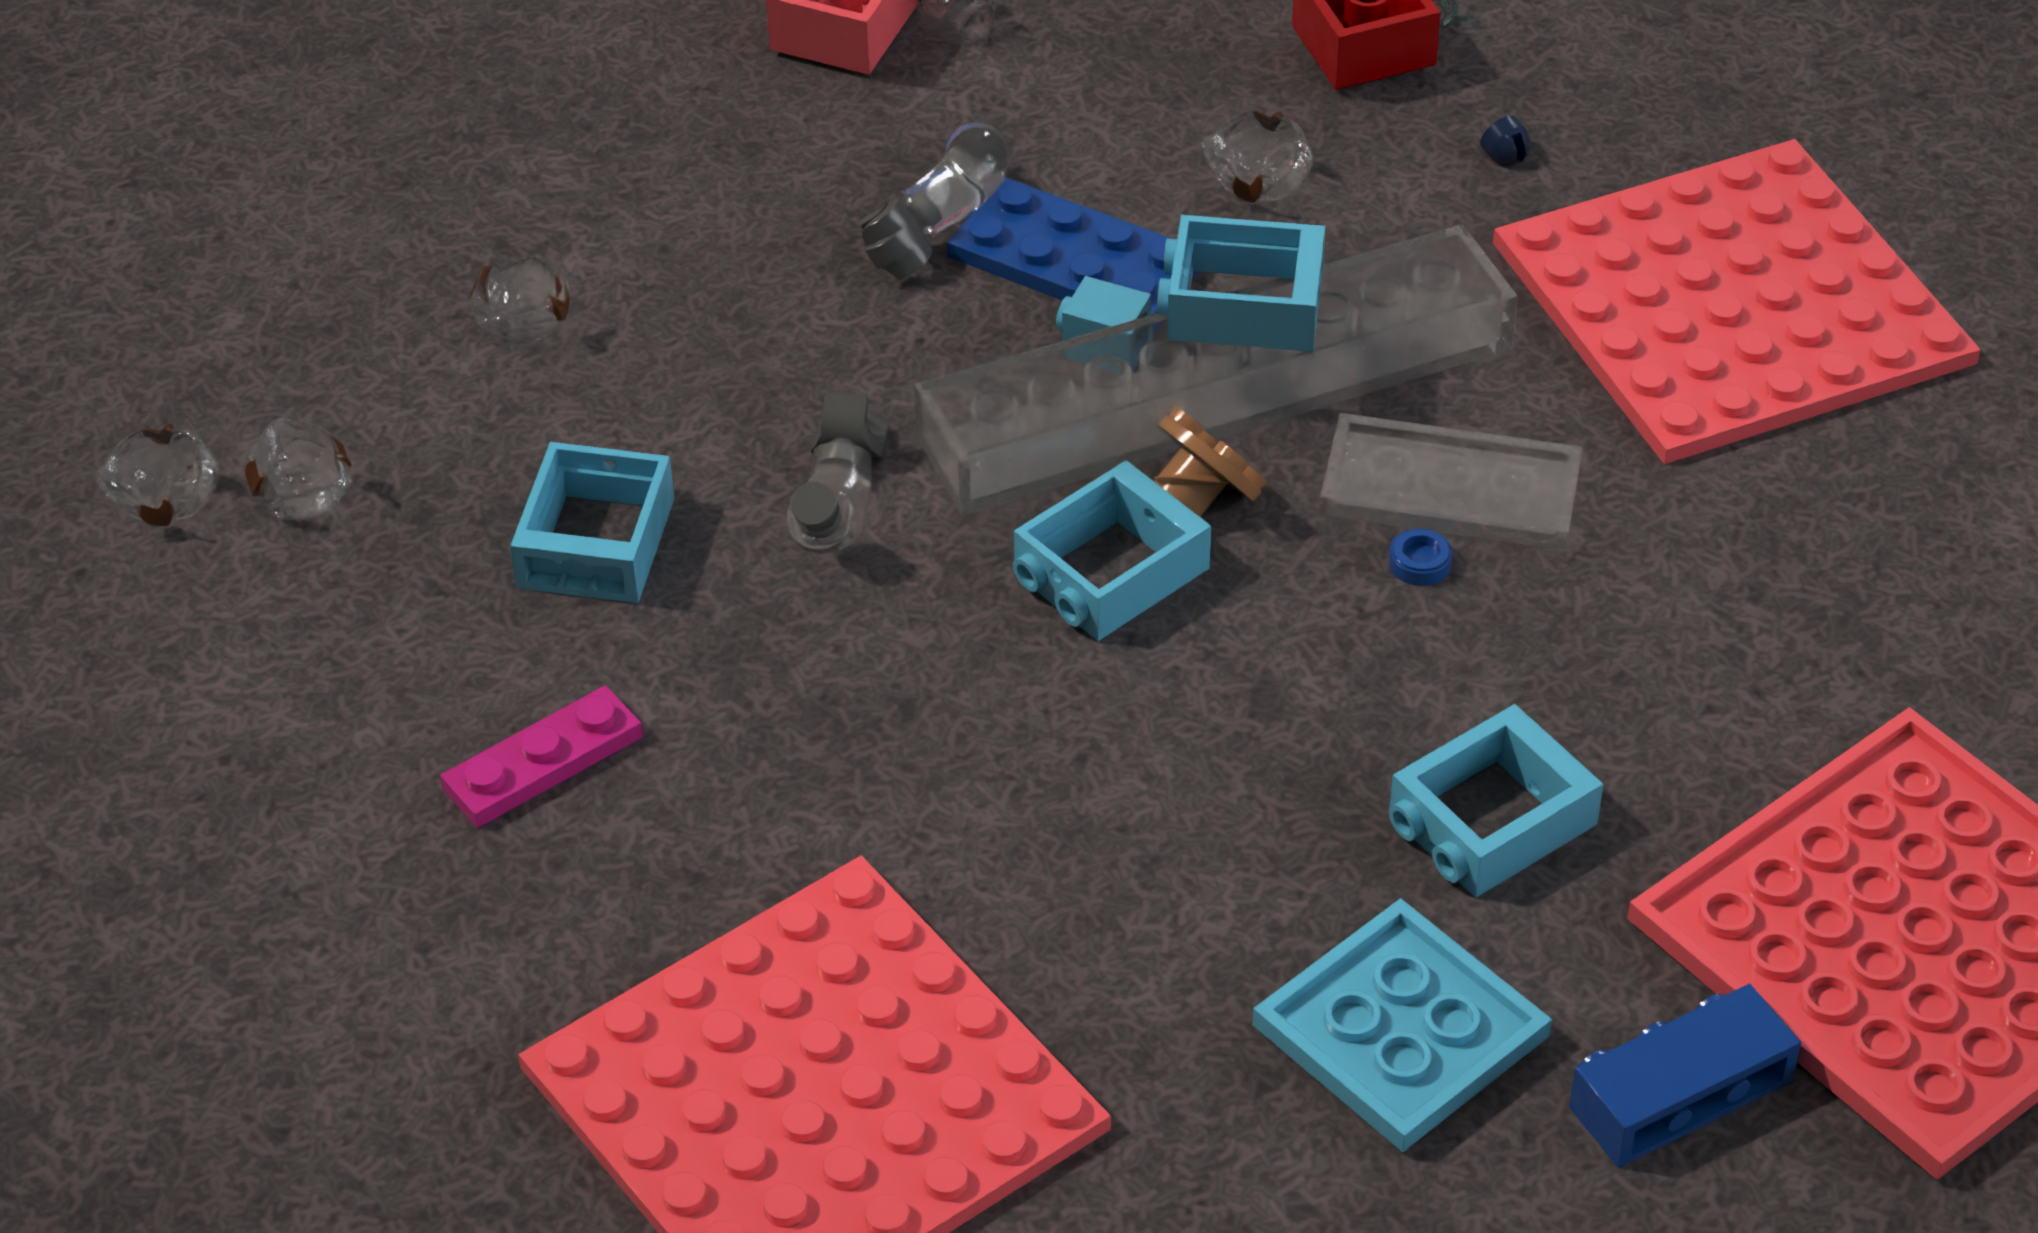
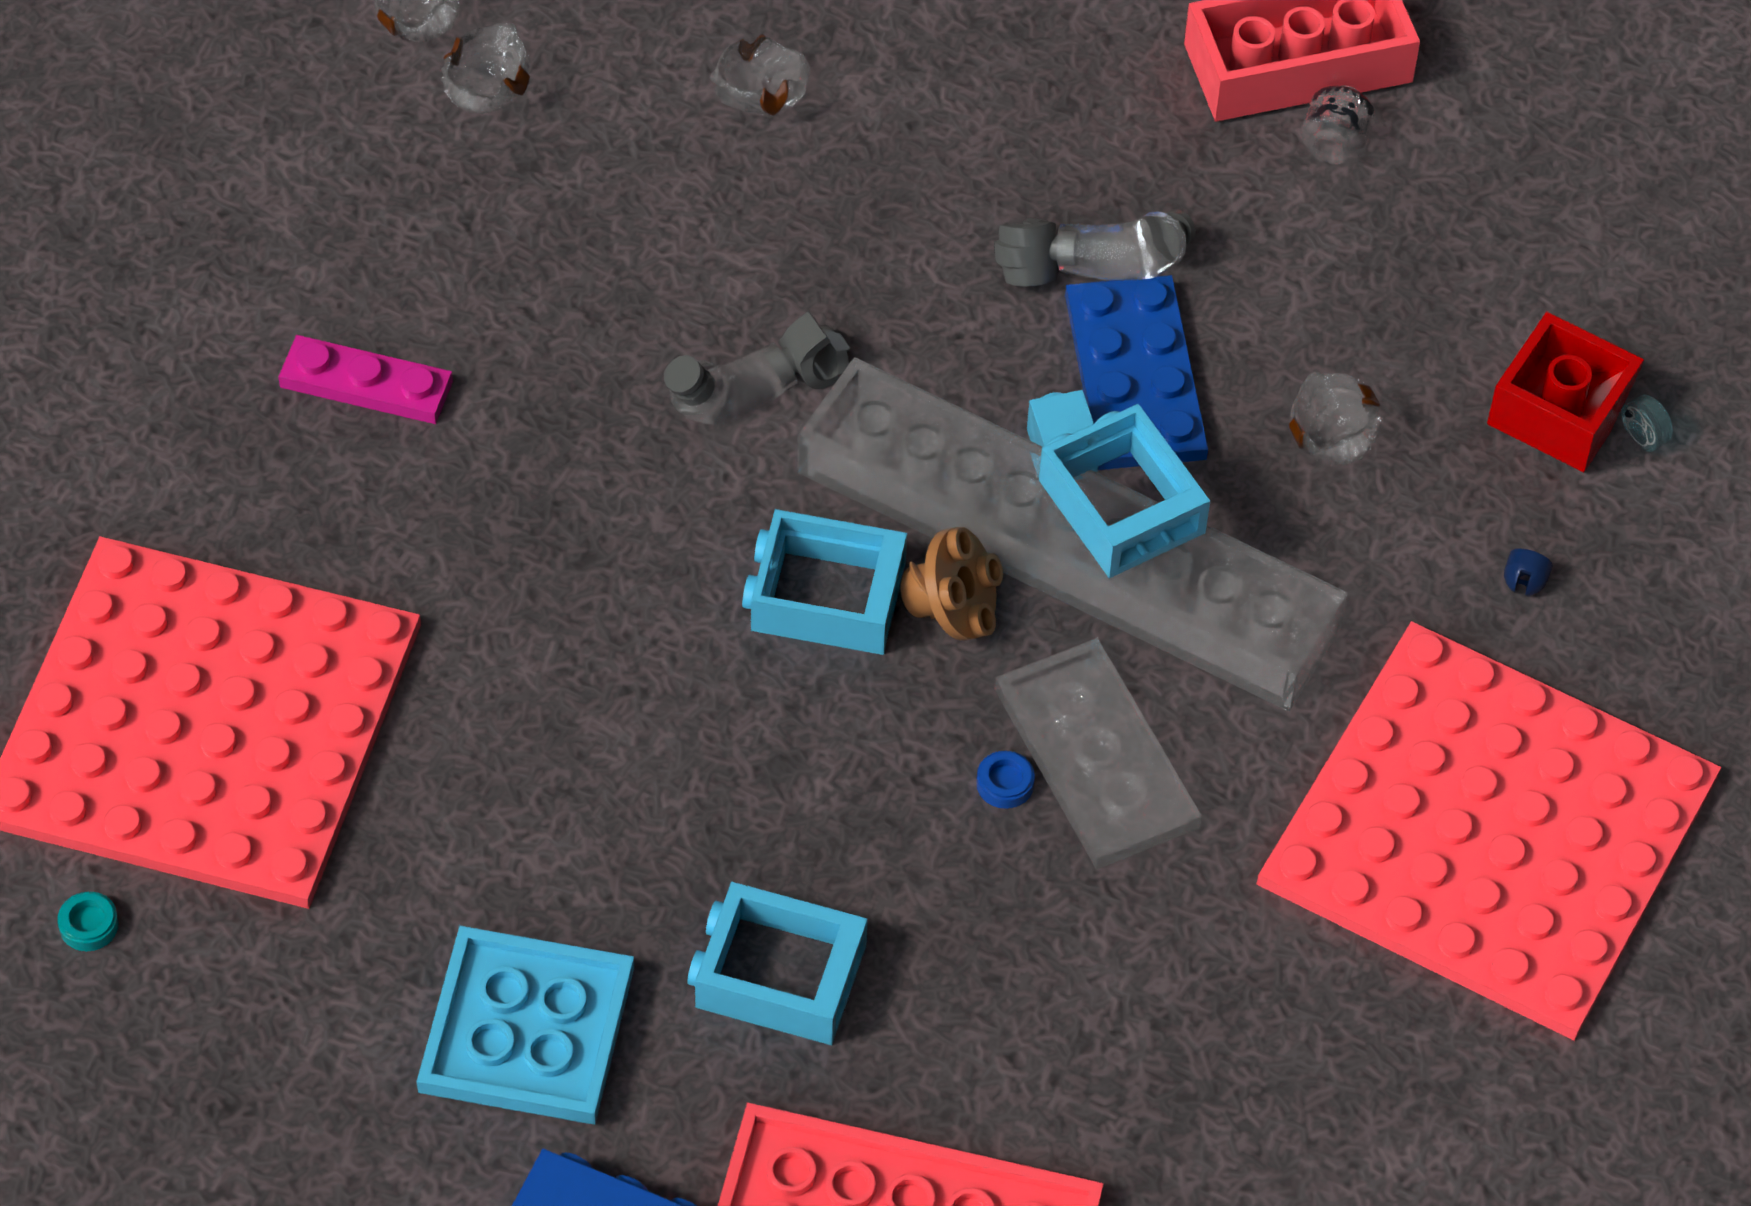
camera: 50 degrees right, 10 degrees up
(589, 564) = (577, 227): medium azure window -> none

